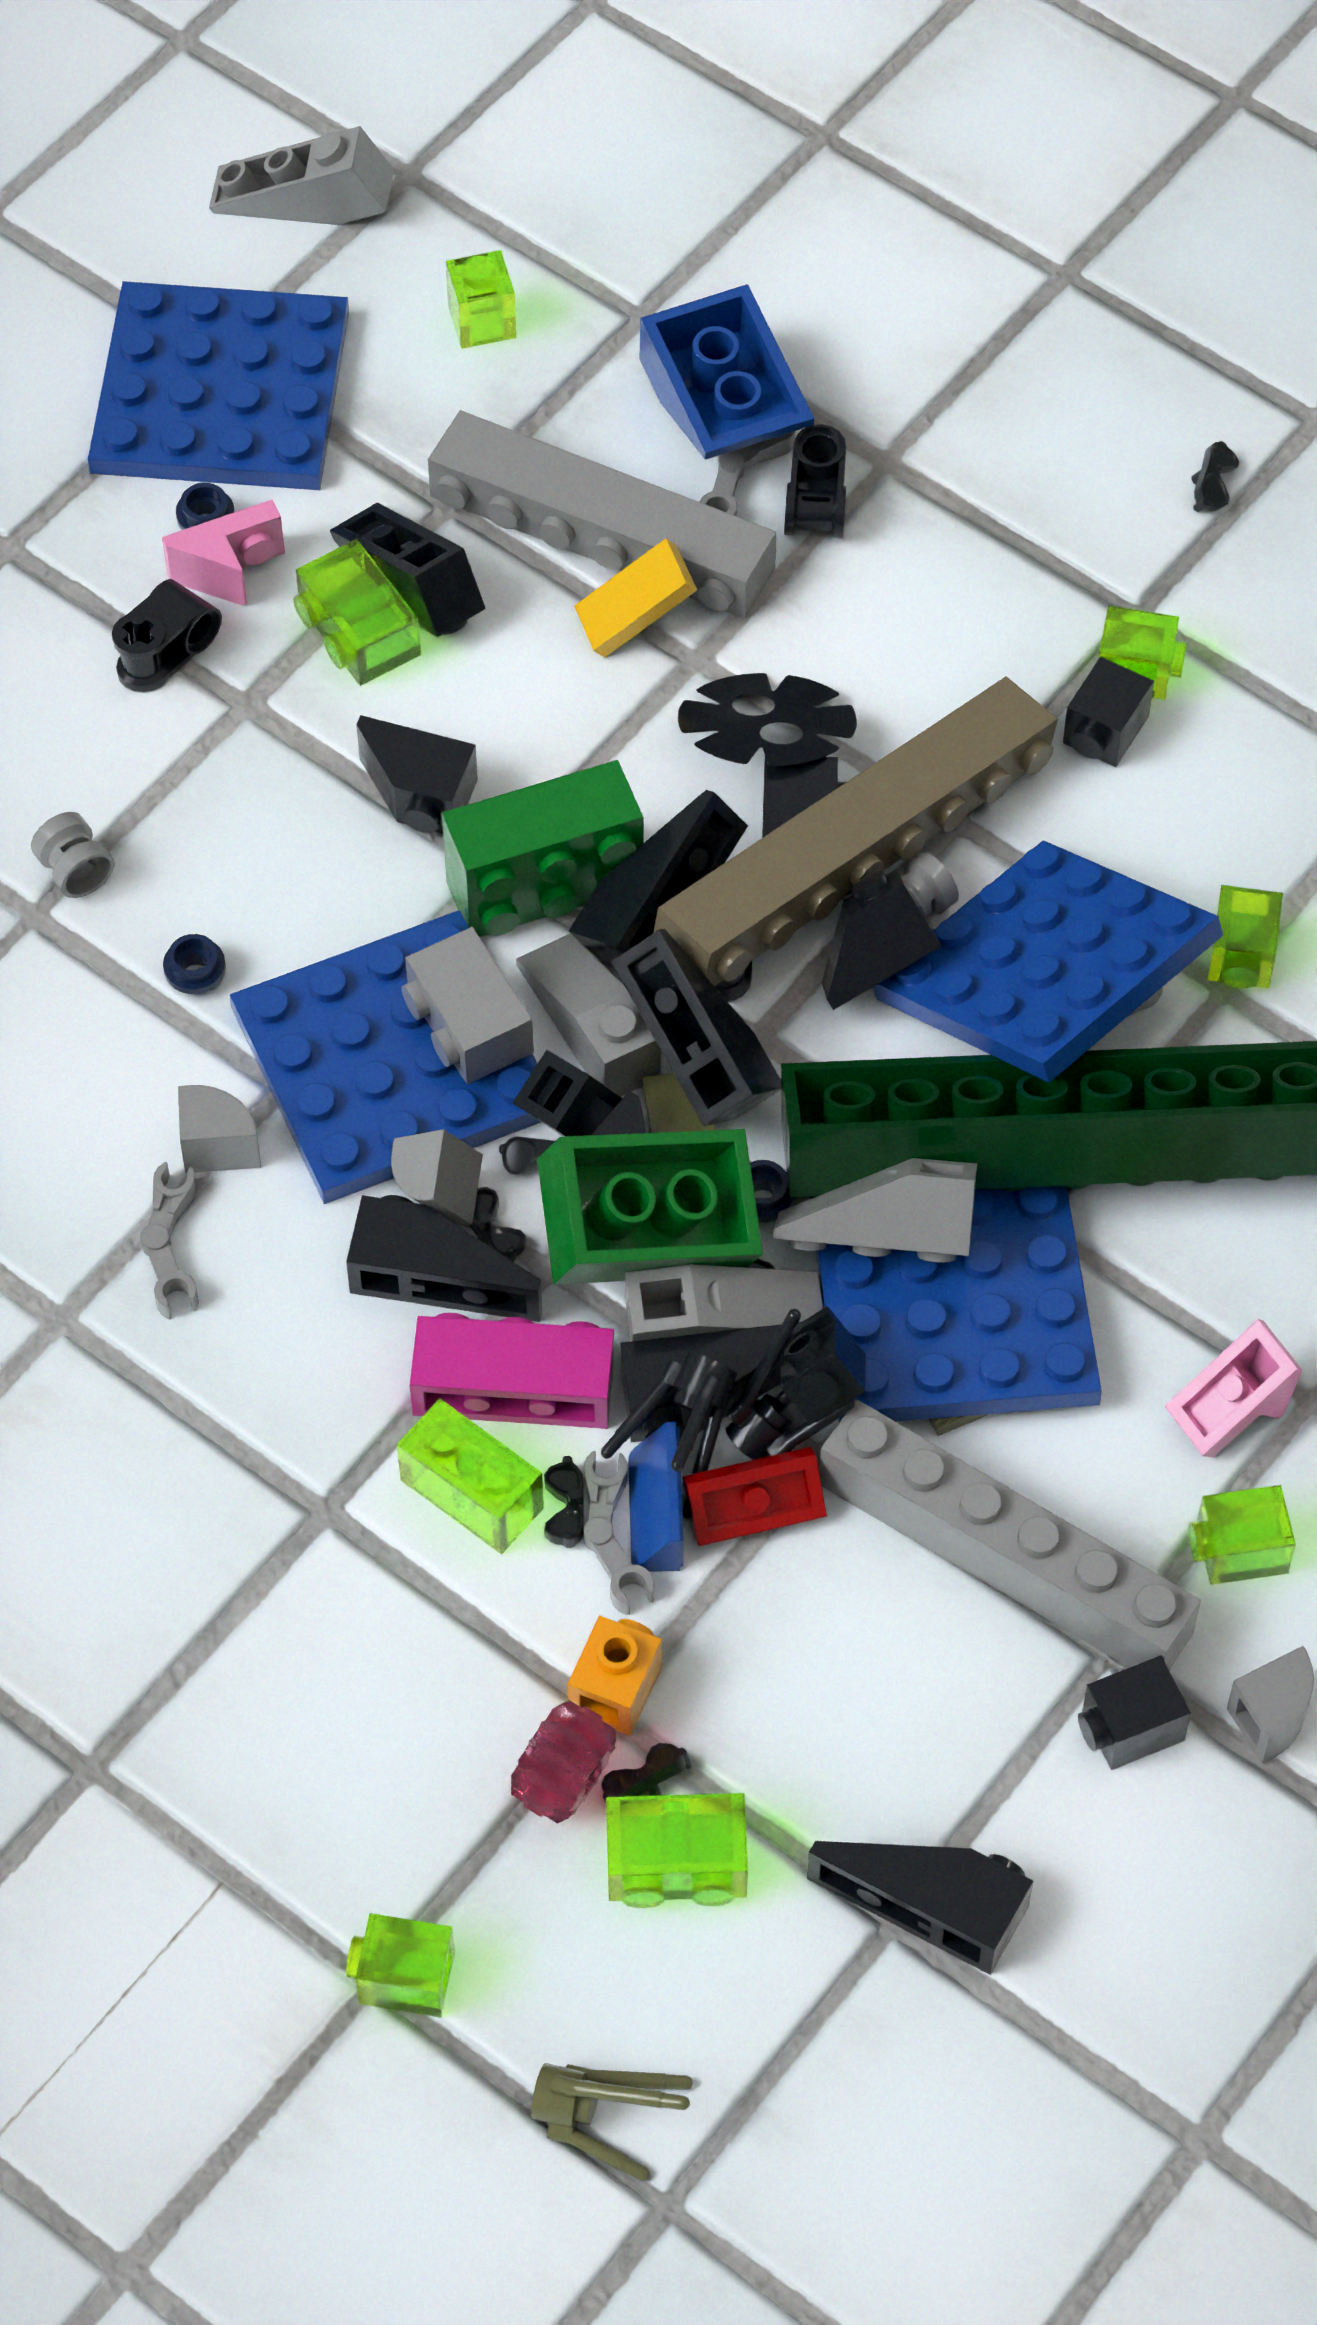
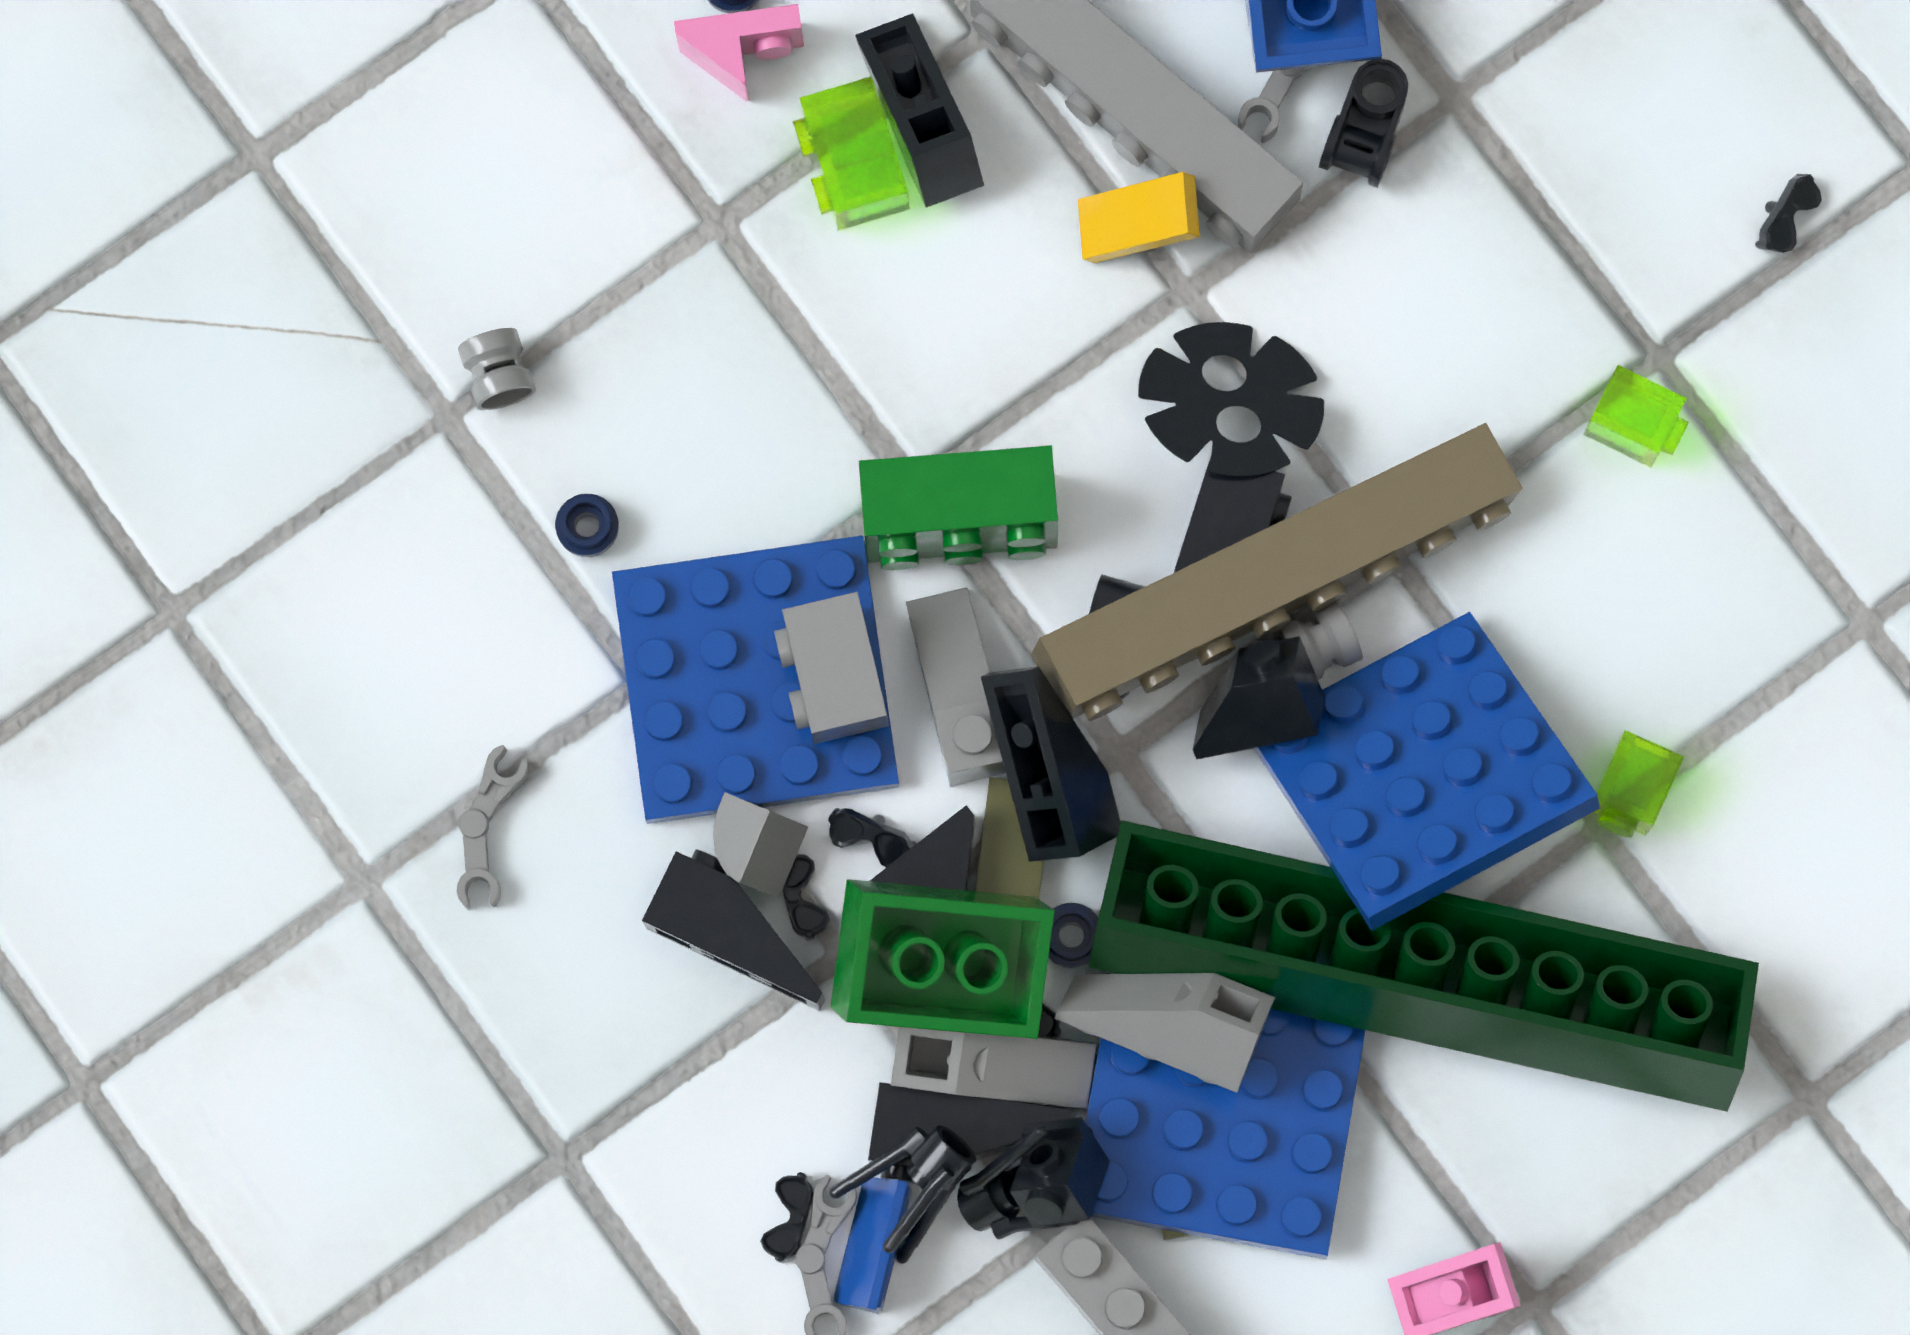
camera: 20 degrees right, 20 degrees up
(162, 635) = (660, 122): black piece -> none
(215, 1130) = (556, 725): light grey brick -> none
(417, 771) = (865, 370): black slope -> none
(470, 1476) = (702, 1174): clear neon green brick -> none
(514, 1370) = (774, 1068): dark pink brick -> none
(565, 1097) = (905, 798): black brick -> none
(671, 860) = (1057, 582): black slope -> none
(754, 1496) = (965, 1268): red plate -> none
(1107, 712) = (1580, 481): black brick -> none

